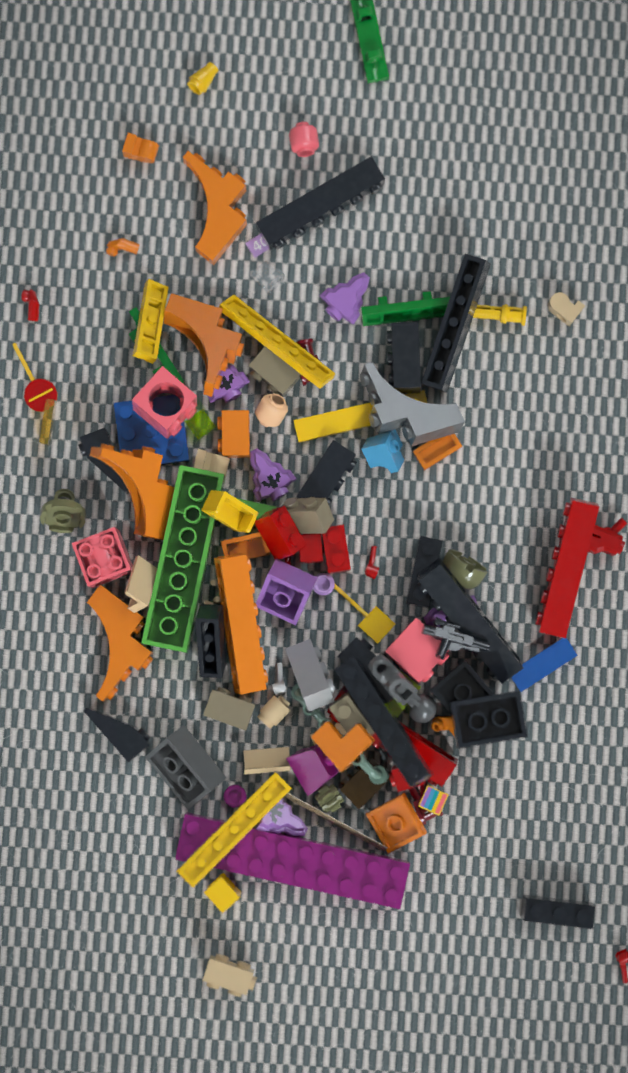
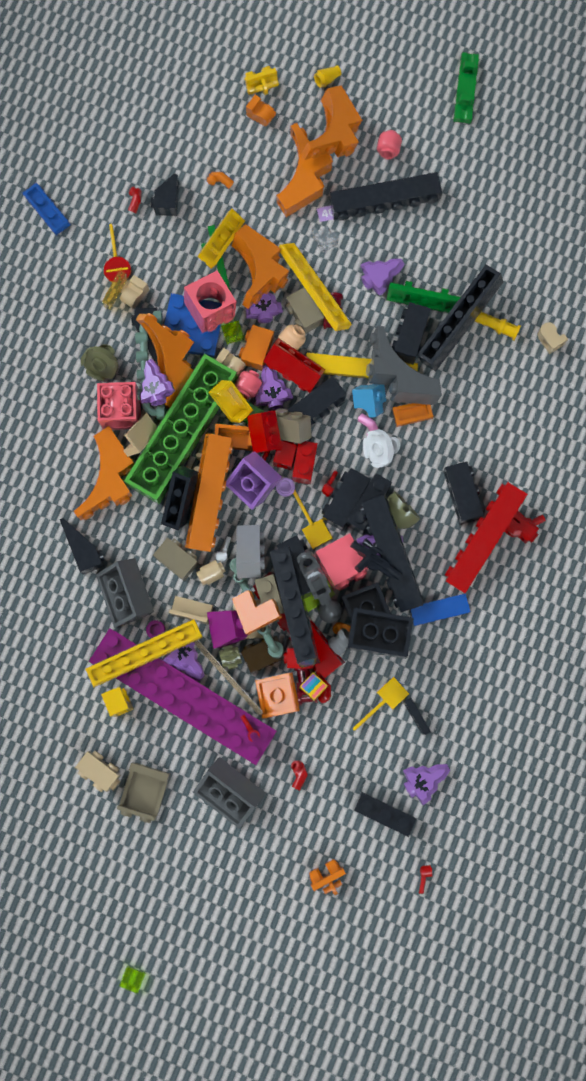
camera: 20 degrees right, 5 degrees down
(67, 290) = (166, 197): none -> black slope
(71, 416) = (134, 292): none -> tan leg
(117, 512) = (143, 356): none -> sand green bar
(129, 111) = (261, 81): none -> yellow hips
(137, 522) = (155, 385): none -> medium lavender rock
(239, 133) = (341, 124): none -> orange arch
(240, 481) = (248, 384): none -> coral head
(285, 442) = (293, 365): none -> red brick
(286, 980) = (143, 792): none -> dark tan panel
(380, 872) = (249, 728): none -> red hand
(380, 947) = (229, 792): none -> dark grey slope
(395, 479) = (368, 422): none -> bright pink arm
(395, 575) = (345, 498): none -> black brick
(415, 504) = (379, 448): none -> white tile
(445, 740) = (340, 642): none -> light grey wheel
(450, 802) = (326, 694): none -> red arm
(450, 897) = (300, 773): none -> red arm
(521, 776) = (391, 693): none -> yellow piece
(526, 522) = (464, 492): none -> black brick
(526, 993) = (319, 881): none -> orange hips
(557, 792) = (416, 716): none -> black tile
(589, 859) = (424, 781): none -> medium lavender rock

